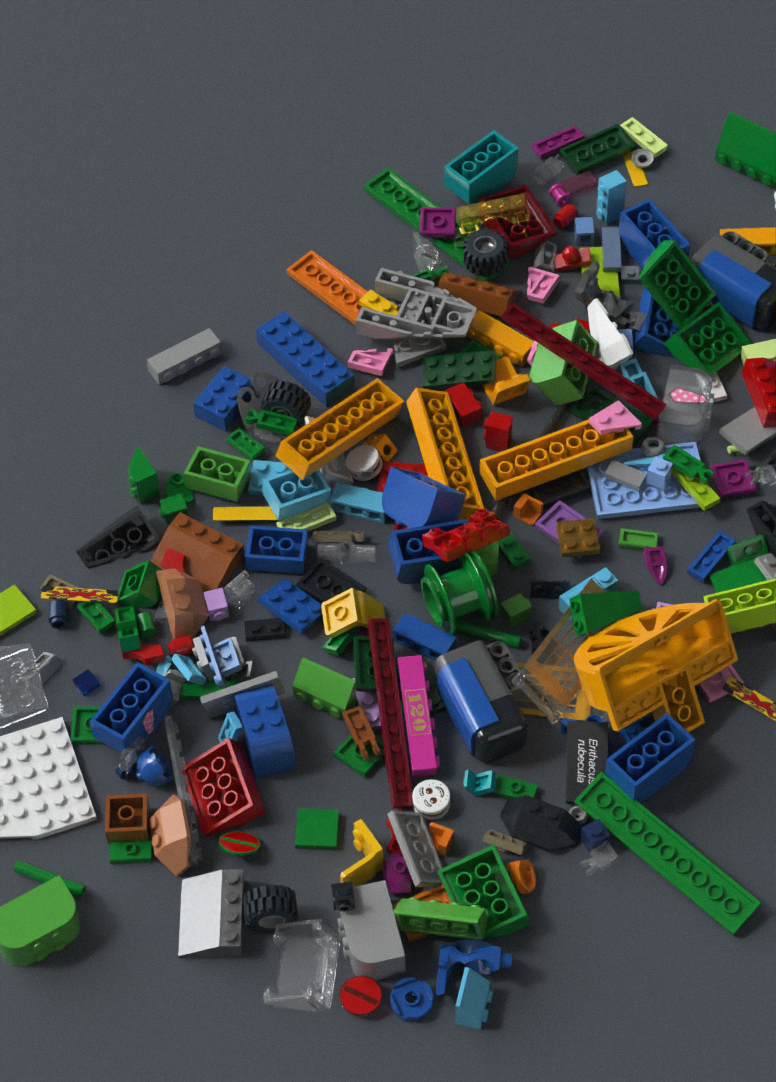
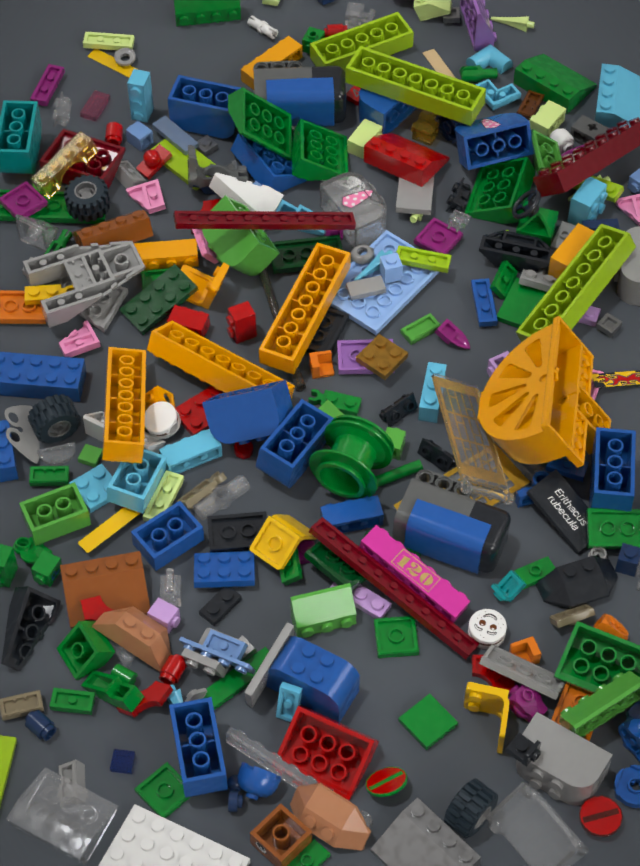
camera: 45 degrees left, 0 degrees up
(79, 594) = (43, 695): sticker -> none
(129, 755) = (233, 785): clear plate -> none
(188, 669) = (199, 681): medium azure tile -> none
(272, 421) = (57, 441): green plate -> none
(360, 731) = (385, 620): dark orange hinge -> none
(480, 532) = (324, 409): red bracket -> none
(559, 195) = (91, 122): dark pink bush -> none
(597, 149) = (84, 71): dark green plate -> none
(597, 610) = (464, 393): green slope -> none
(614, 419) = (325, 249): bright pink wing -> none
(636, 321) = (255, 171): flat silver plate -> none
(688, 464) = (408, 246): green plate -> none

